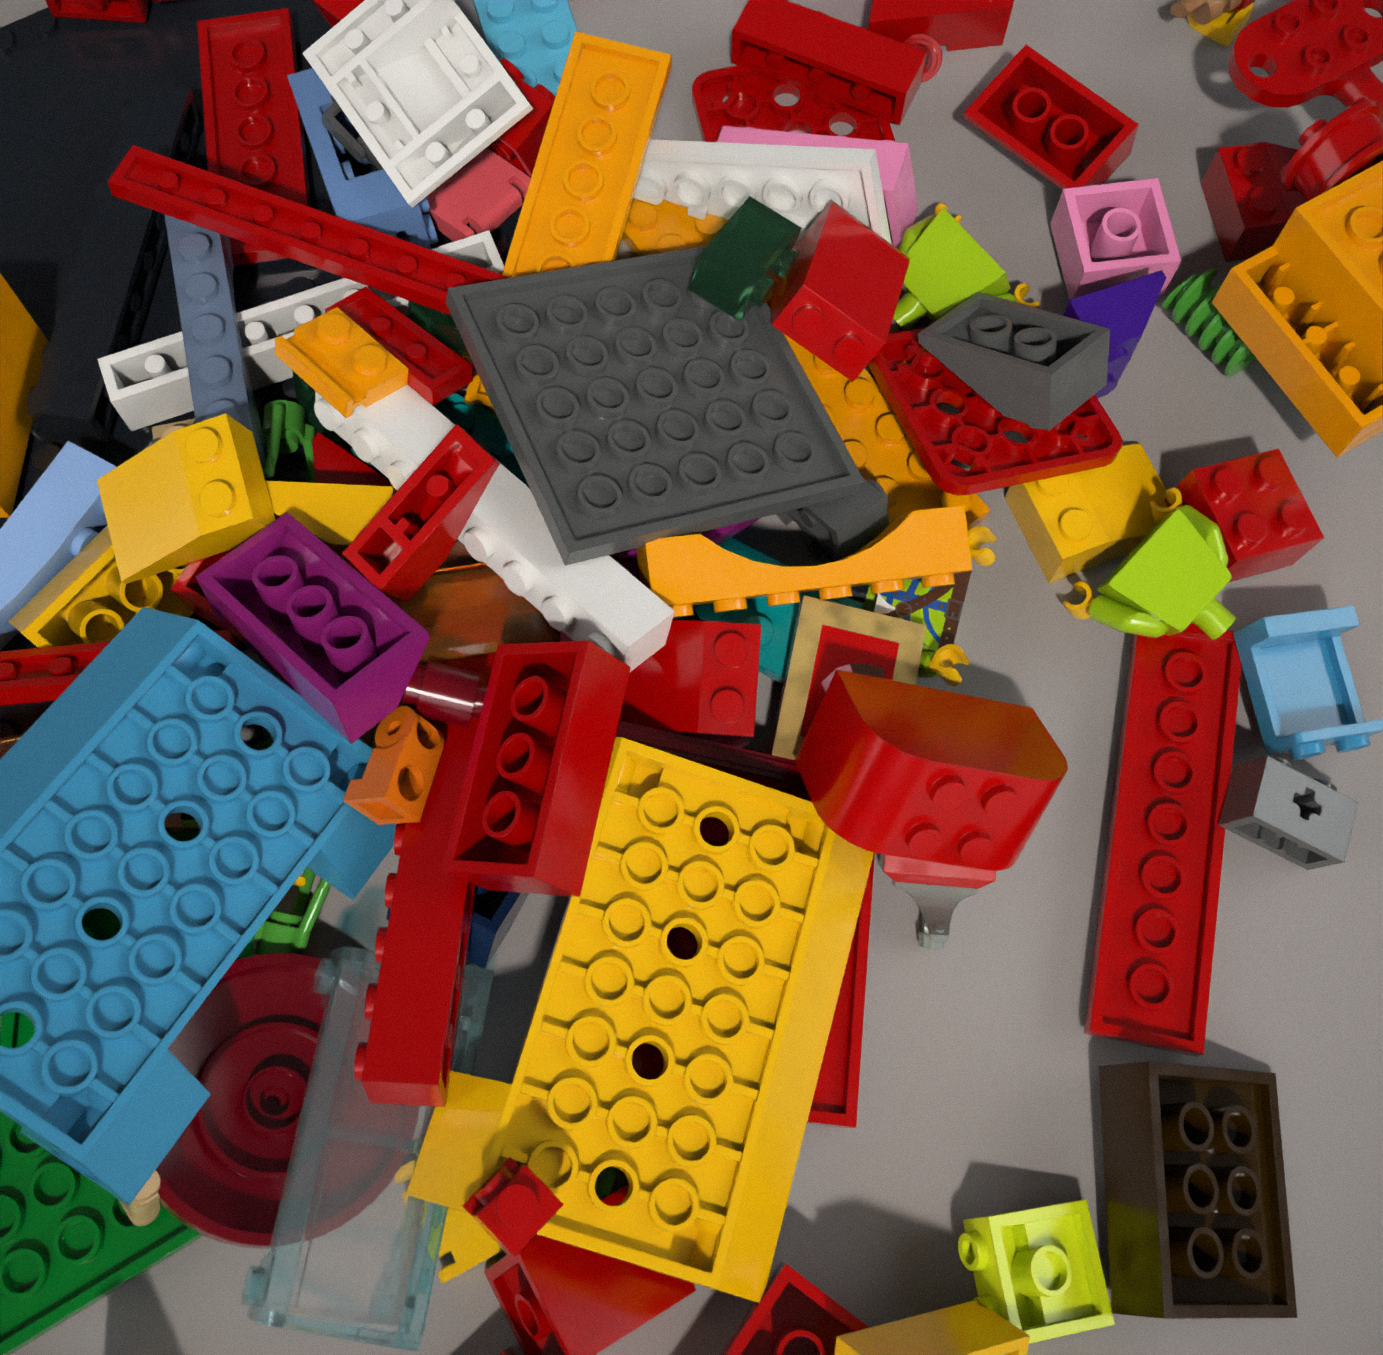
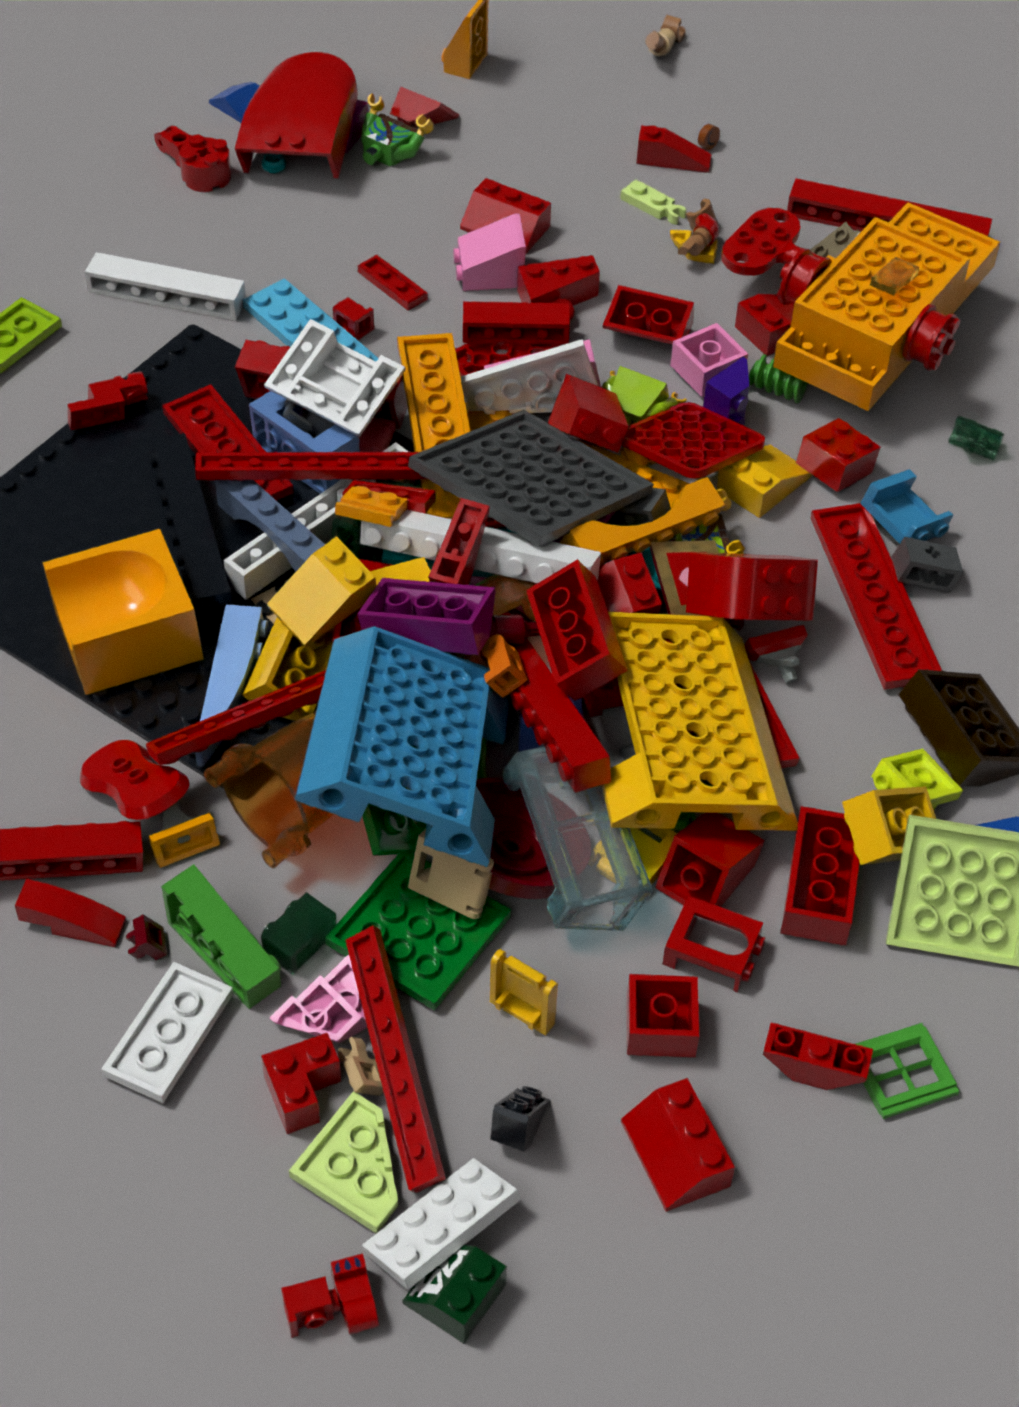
camera: 25 degrees left, 20 degrees down
(512, 1206) = (672, 784): red brick -> none
(745, 259) = (541, 410): clear green brick -> none
(1021, 357) = (697, 413): dark grey slope -> none
(1165, 579) = (815, 487): lime torso -> none

